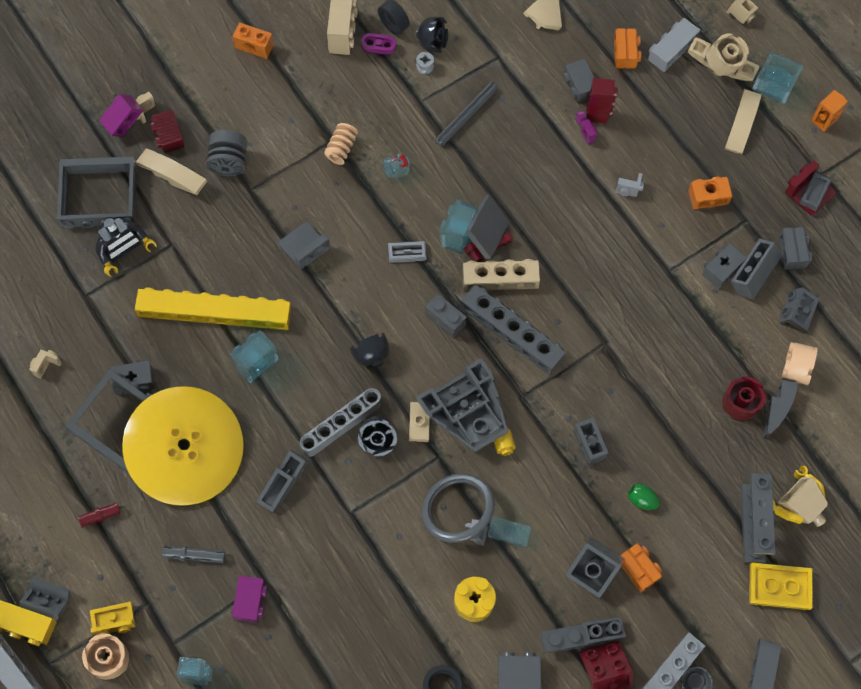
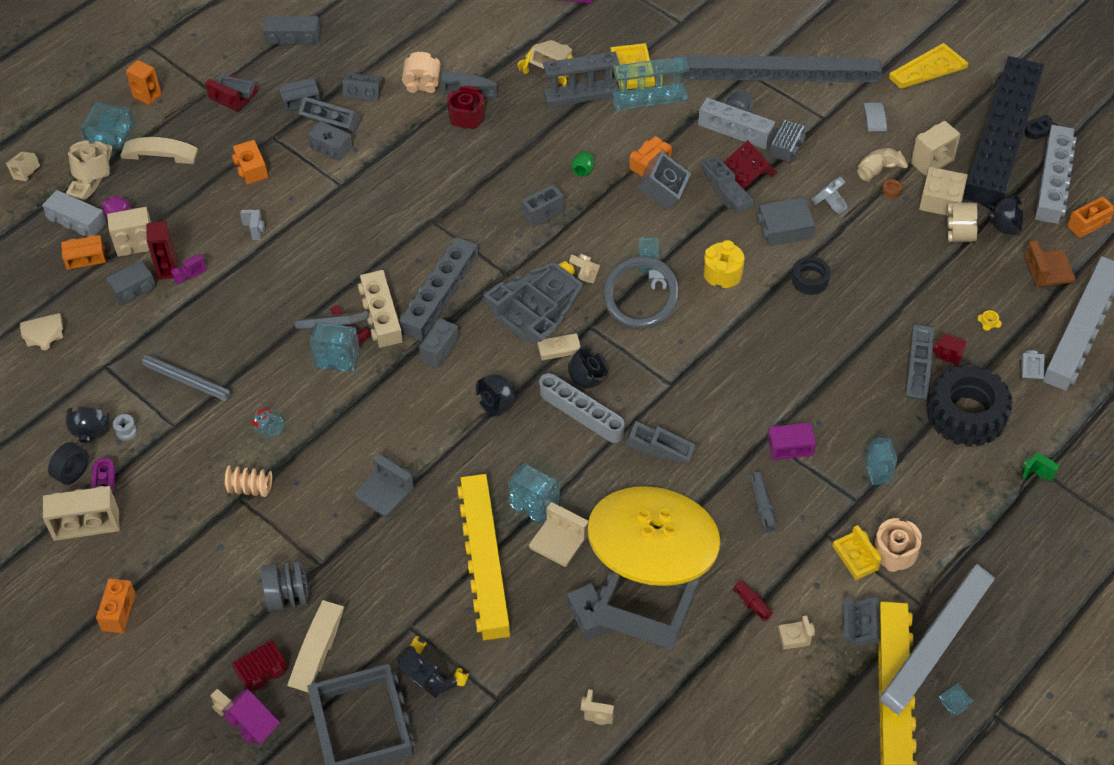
camera: 100 degrees left, 15 degrees down
(57, 542) = (796, 634): none -> tan bracket
(212, 371) = (560, 535): none -> tan bracket
(409, 255) = (372, 410): light grey tile -> none
(505, 465) = (588, 268): none -> tan bracket
(634, 83) = (129, 231): none -> tan brick
(671, 78) = (115, 204): none -> magenta head
(738, 590) = (653, 95): none -> clear light blue fence

